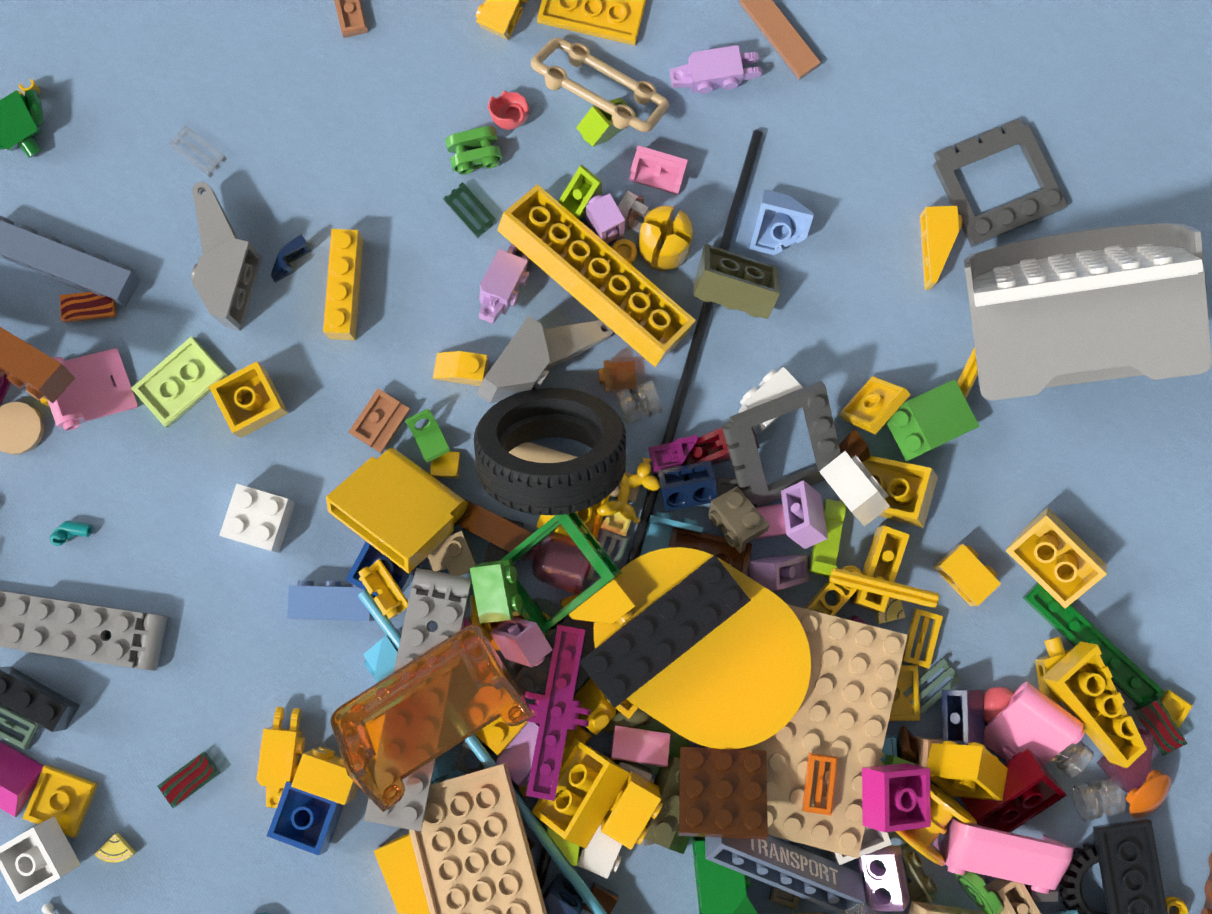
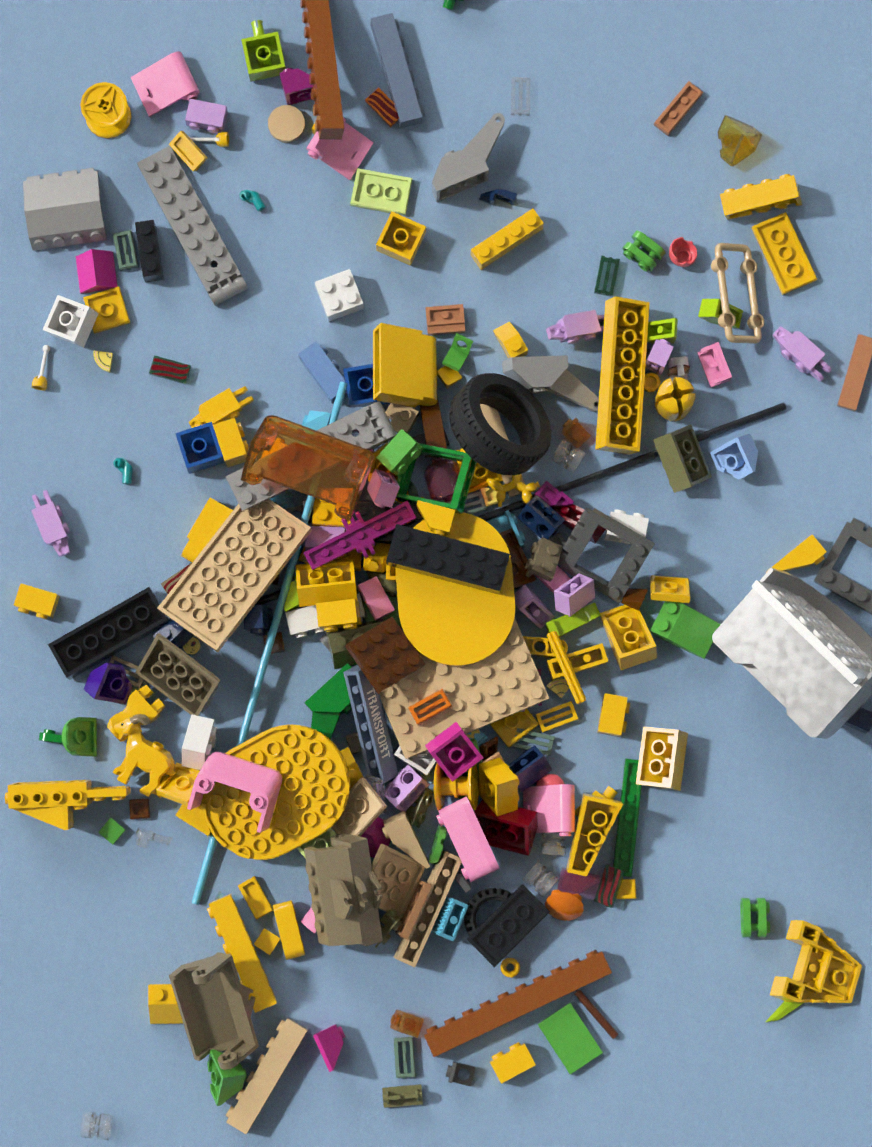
camera: 55 degrees right, 0 degrees up
(390, 597) = (352, 399): yellow hinge -> none
(856, 487) = (611, 611): white brick -> none

